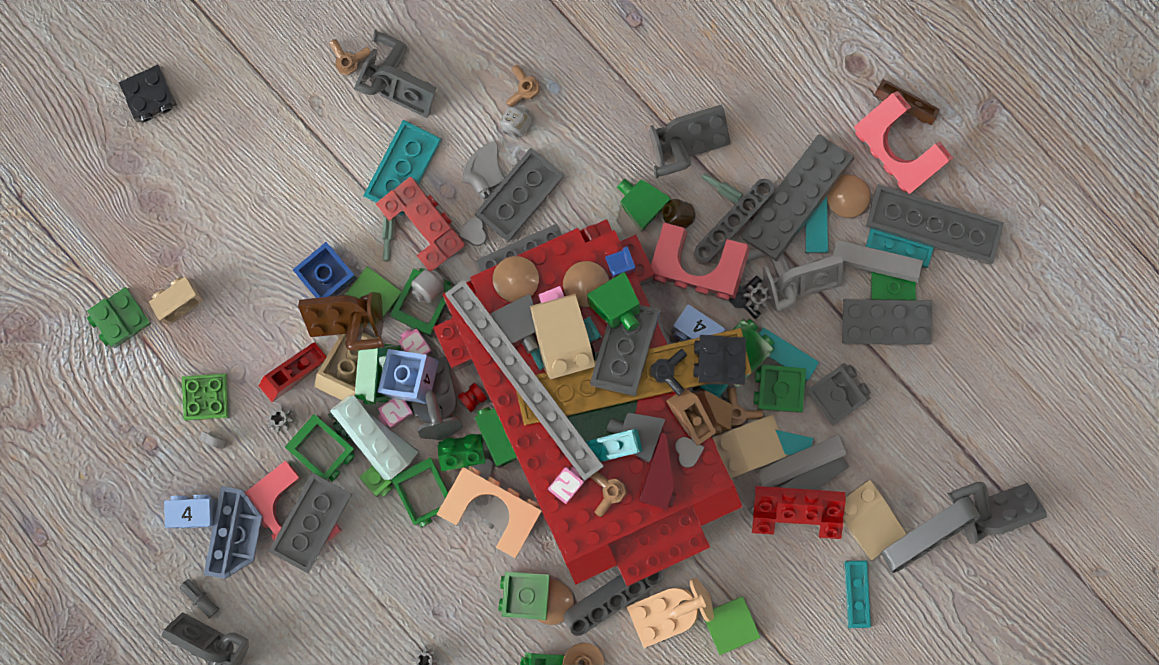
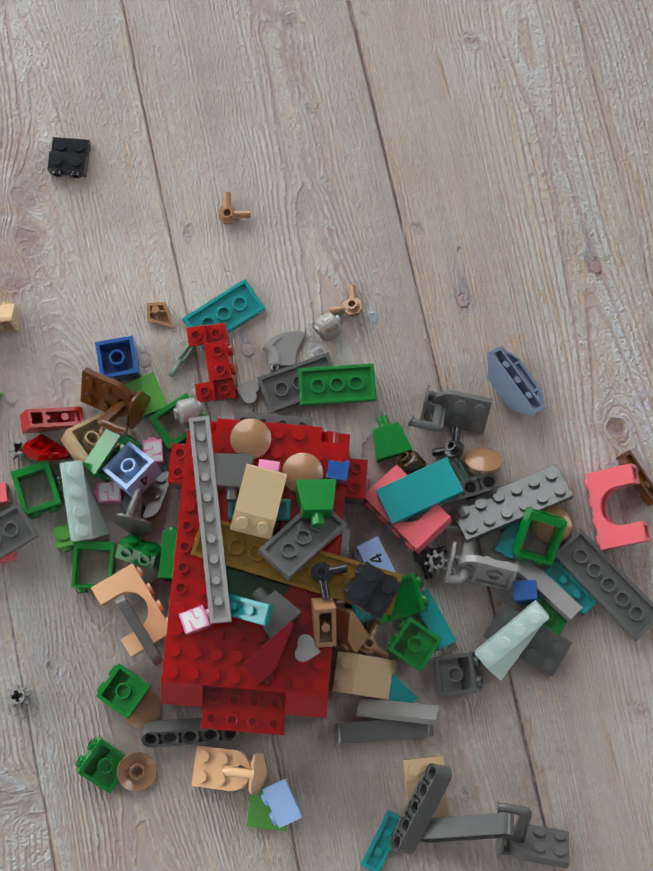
camera: 30 degrees right, 5 degrees down
(304, 405) = (44, 449): none -> red wing
(338, 205) = (159, 314): none -> medium nougat piece
(393, 83) = (251, 245): dark grey plate -> none
(470, 402) = (169, 516): red wheel -> none
(509, 527) = (139, 630): none -> dark grey beam
(559, 176) = (337, 385): none -> green tile
(613, 492) = (229, 645): medium nougat piece -> none
(703, 236) = (419, 491): none -> teal tile
(710, 175) = (453, 448): none -> black piece
(733, 75) = (514, 382): none -> sand blue wedge
(742, 612) = (282, 803): none -> light blue brick
(746, 170) = (483, 460): none -> medium nougat dish
(798, 507) = (374, 745): red bracket -> none
(858, 196) = (559, 528): none -> green window
(860, 277) = (525, 592): none -> blue panel
(871, 335) = (508, 643): none -> light aqua wedge
(877, 541) = (420, 808): none -> dark grey beam

